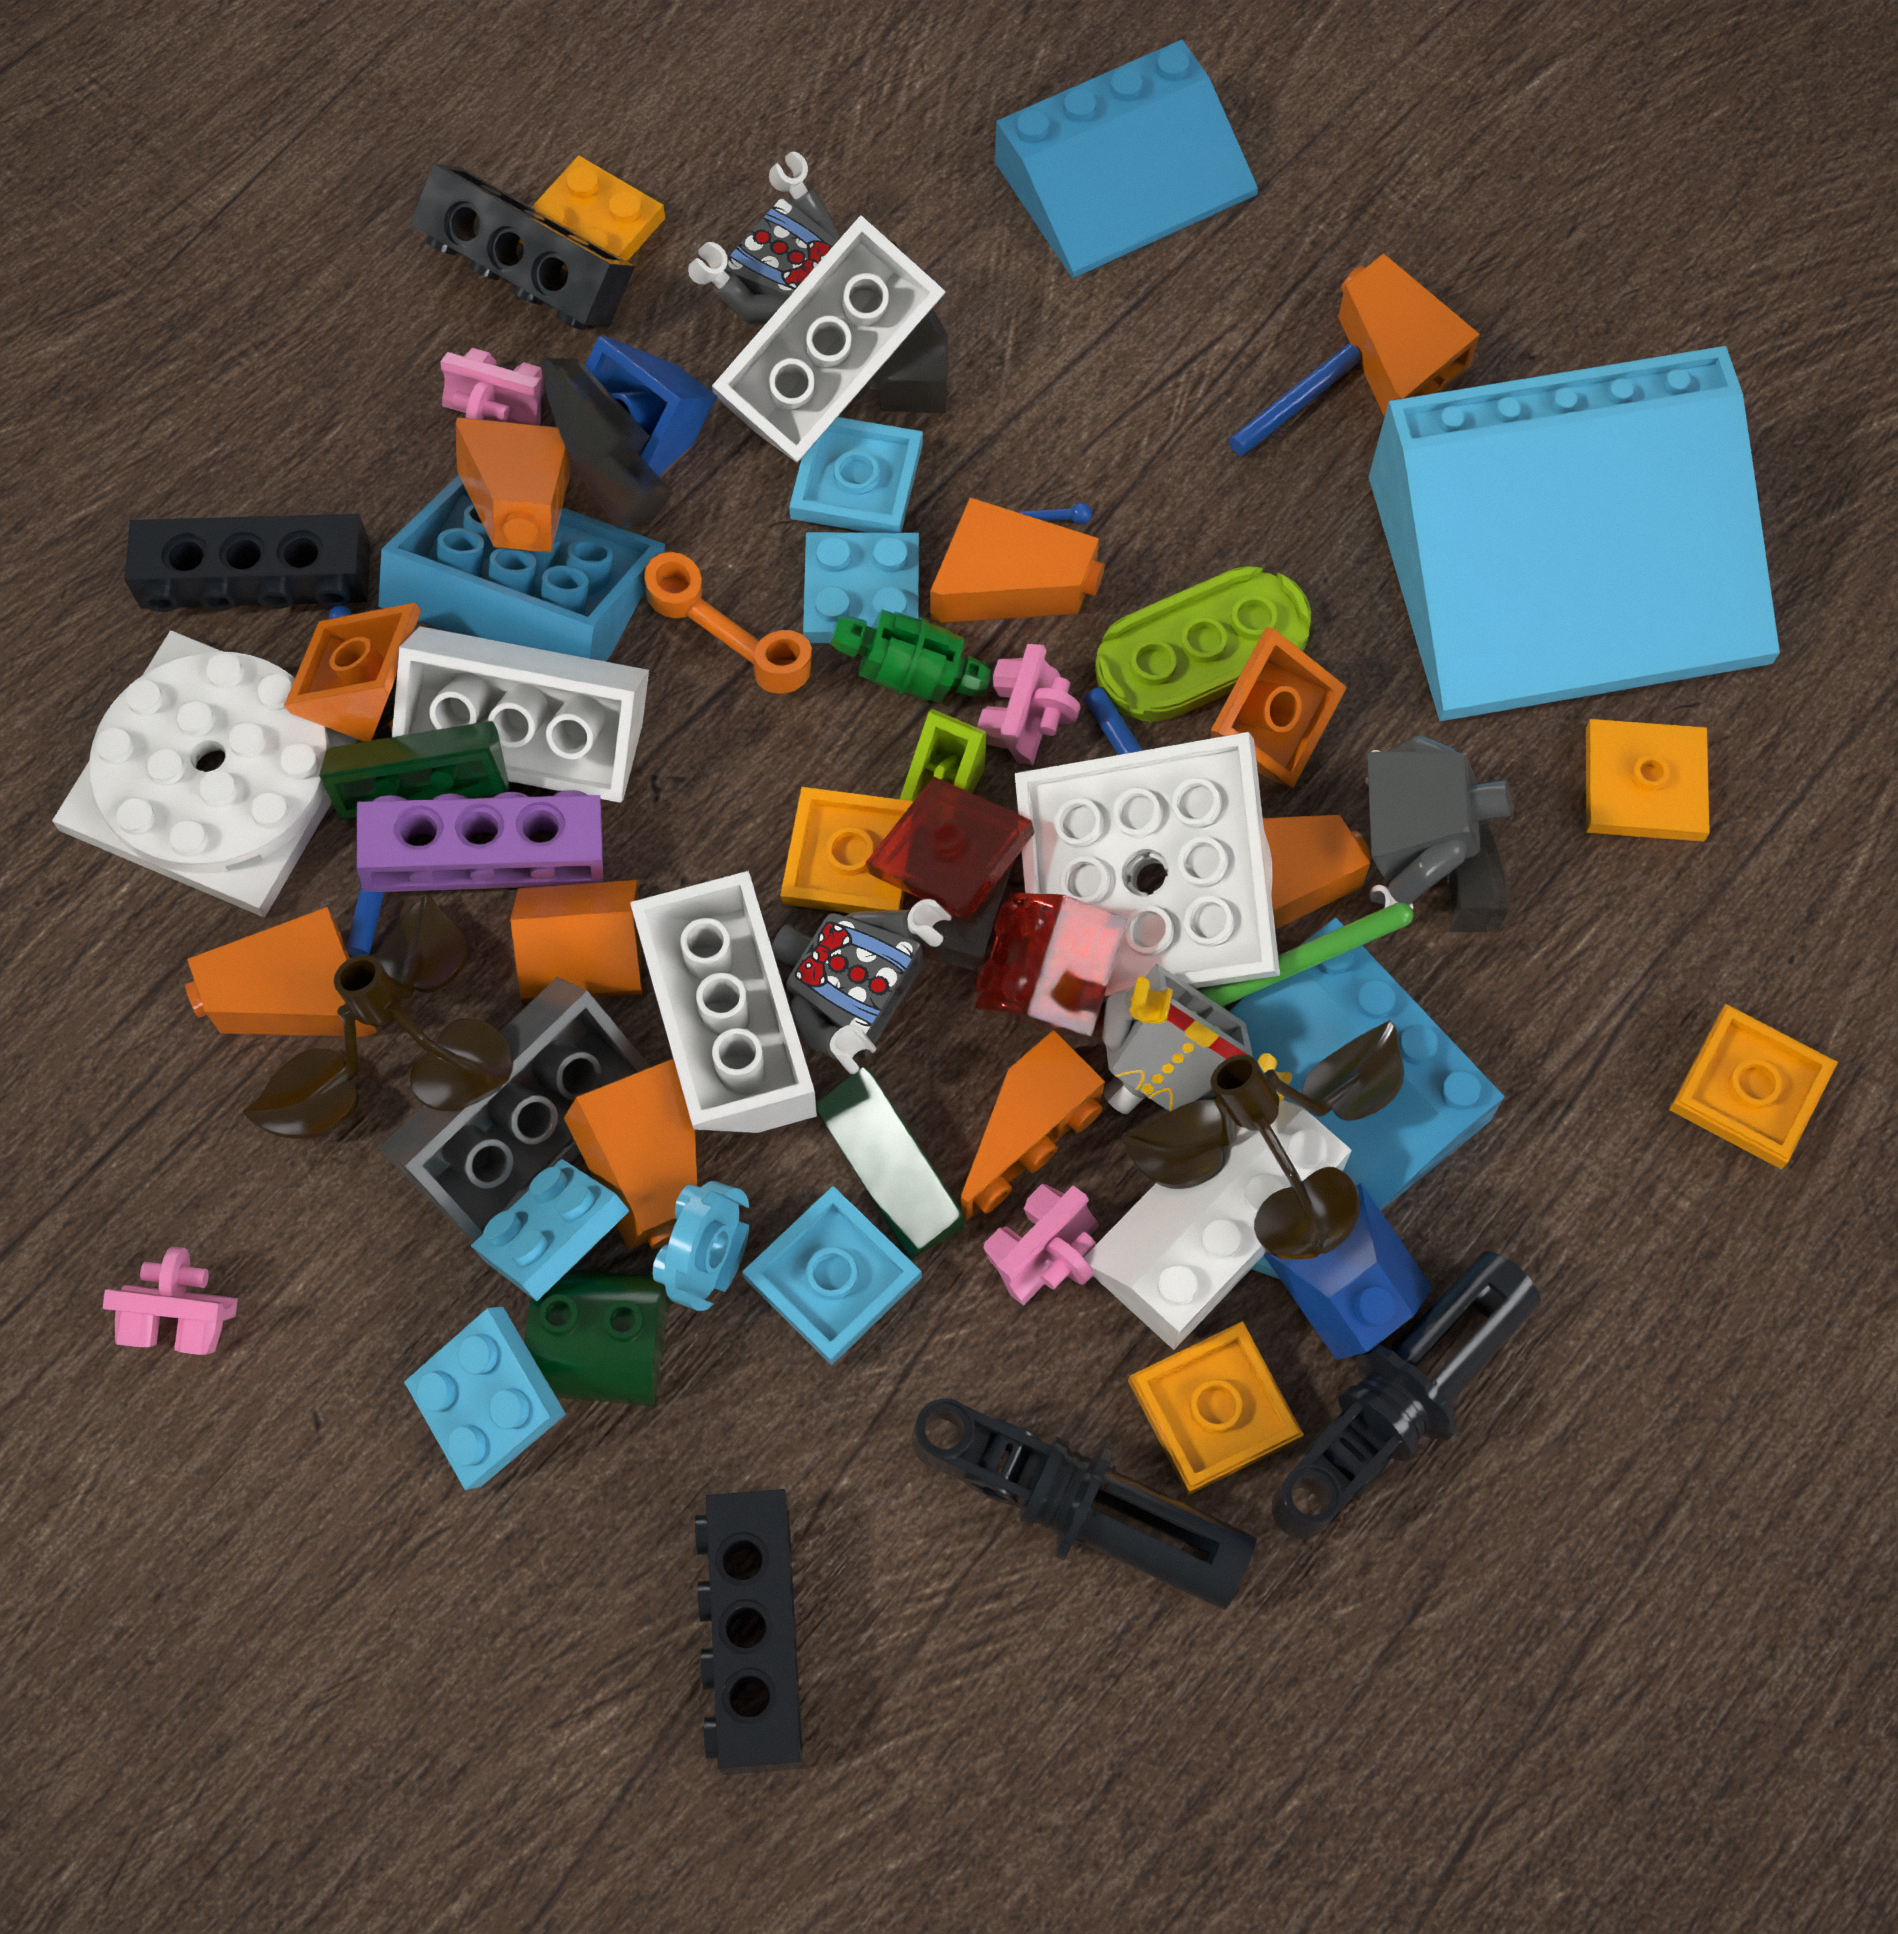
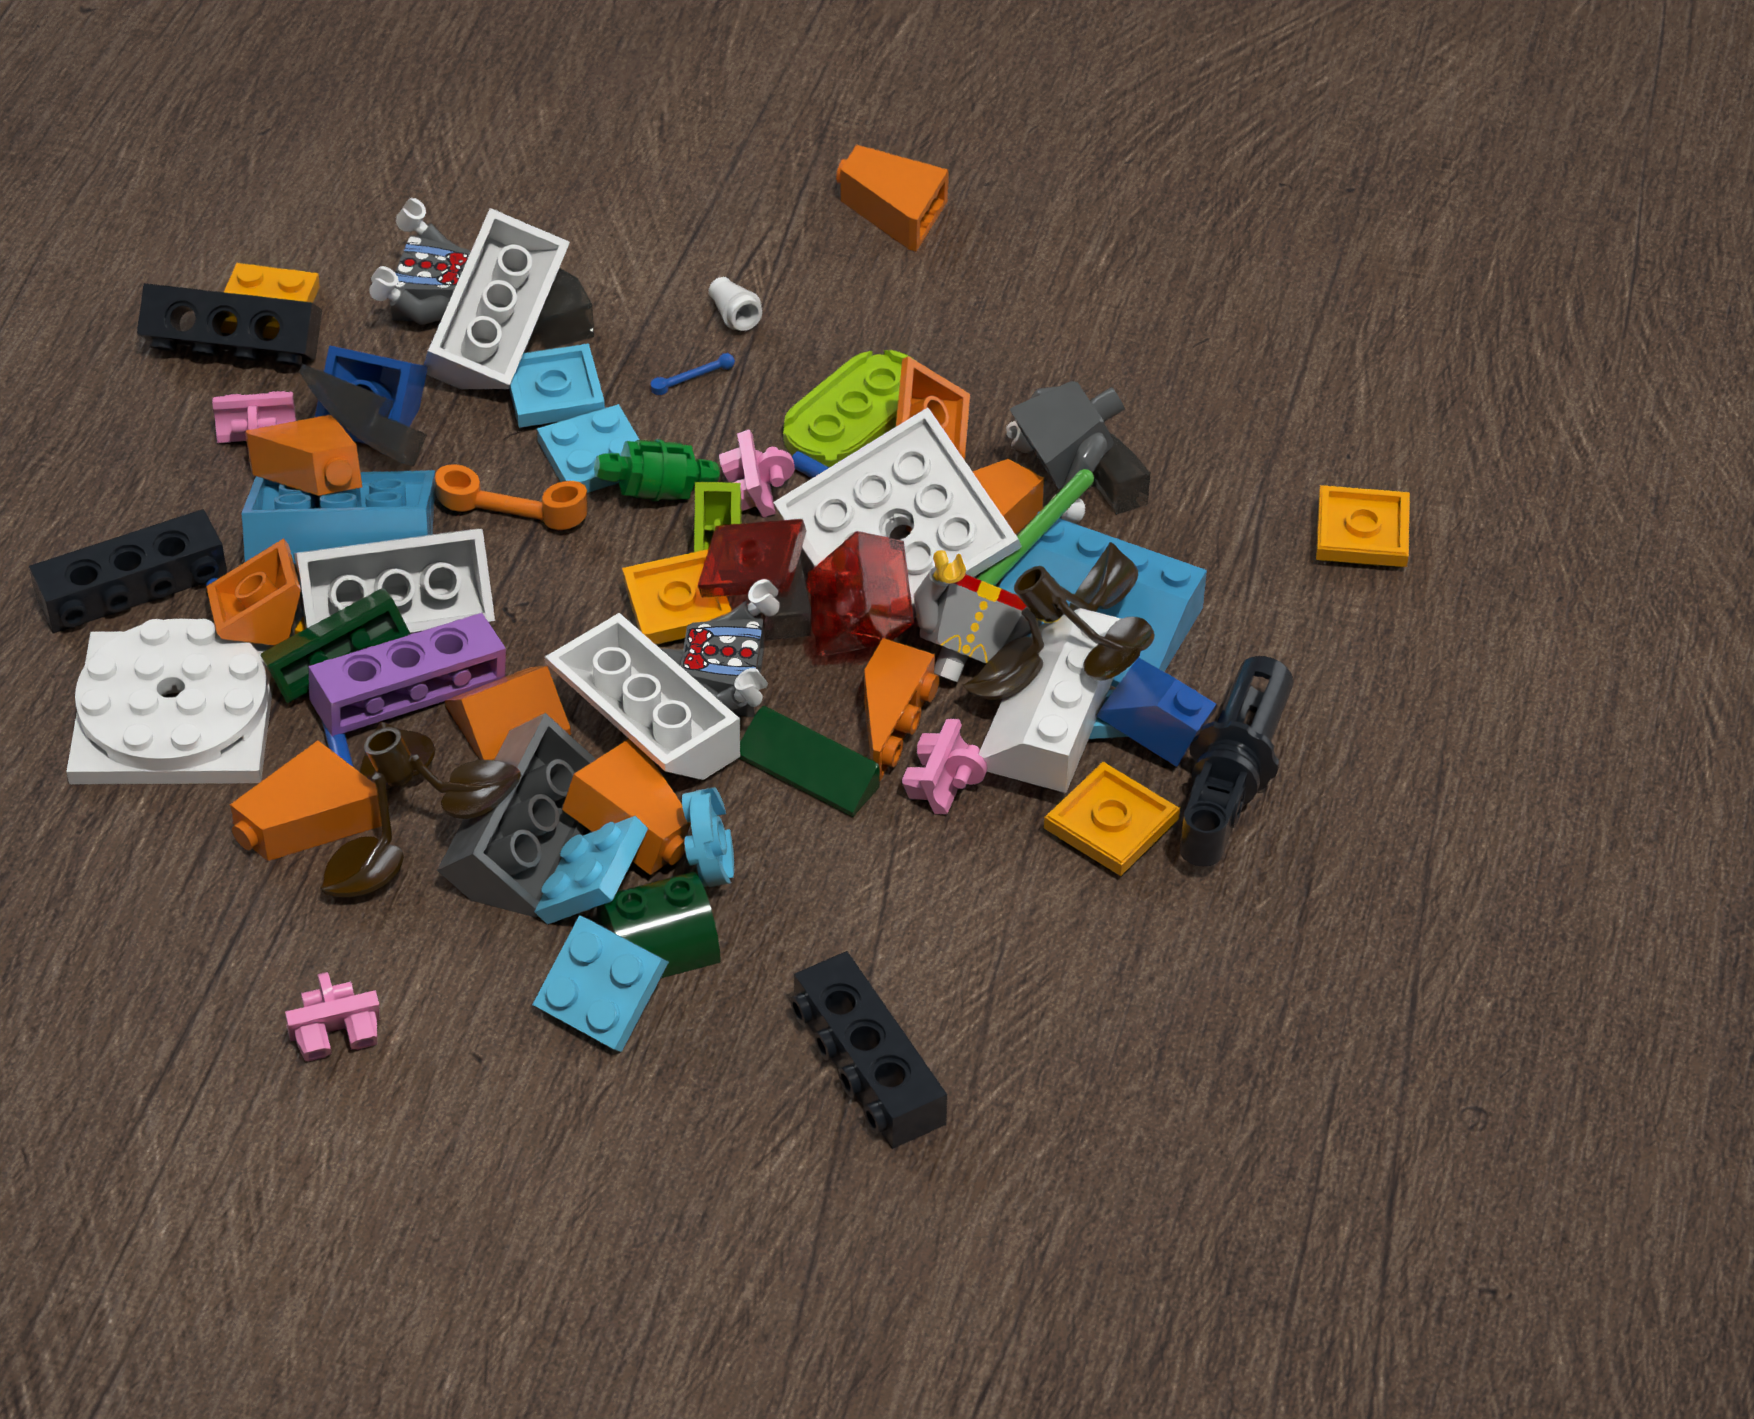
camera: 25 degrees left, 20 degrees down
(832, 1275) = (805, 836): medium azure plate -> none
(1013, 568) = (702, 399): orange slope -> none
(1058, 1492) = (1049, 889): black piece -> none
(1124, 158) = (639, 150): dark azure slope -> none
(1129, 438) = (737, 305): none -> white cone
(1295, 399) = (838, 253): blue bar -> none
(1577, 532) = (1073, 254): medium azure slope -> none
(1647, 780) = (1198, 387): light orange plate -> none

